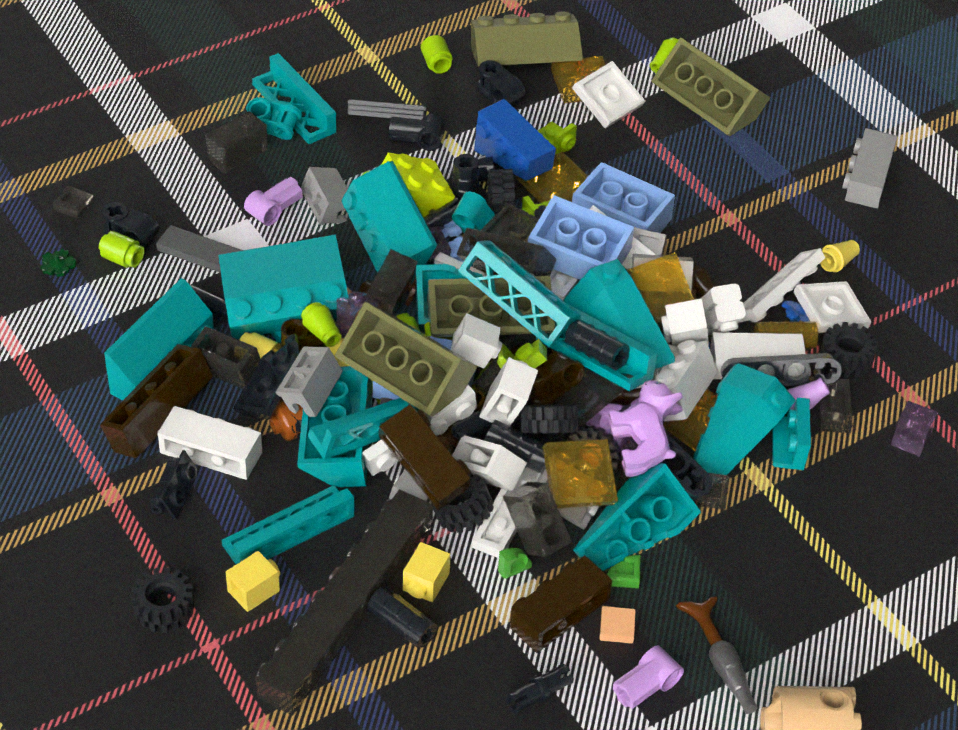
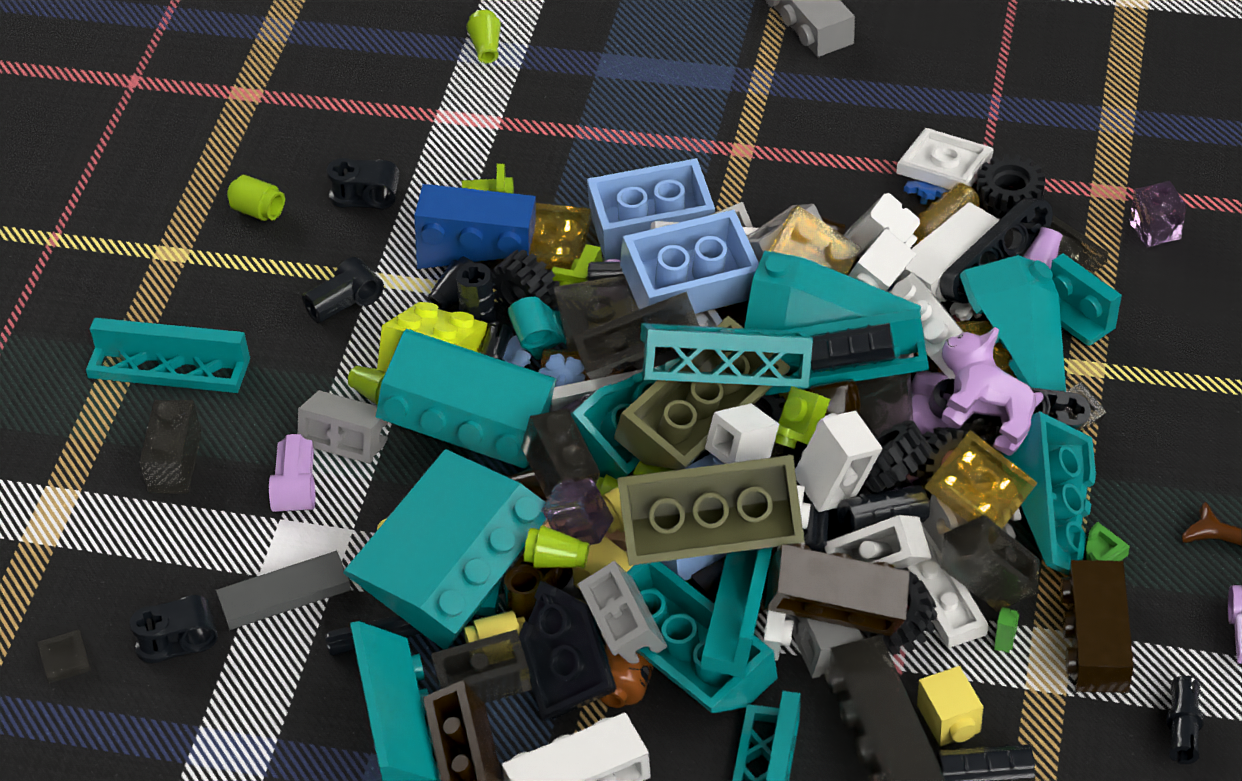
camera: 40 degrees left, 0 degrees up
(57, 263) = (138, 734): dark green plant -> none
(121, 249) = (199, 659): lime brick -> none
(277, 116) = (178, 384): teal piece -> none
(385, 109) = (277, 295): axle -> none
(526, 39) = (334, 117): olive slope -> none
(571, 72) = (431, 118): clear yellow plate -> none
(608, 94) = (484, 113): white tile -> none
(617, 624) = (1161, 602): light nougat tile -> none
(709, 88) = (568, 37): olive slope -> none
(784, 281) = (876, 160): white plate -> none
(839, 255) = (888, 110): light yellow cone -> none

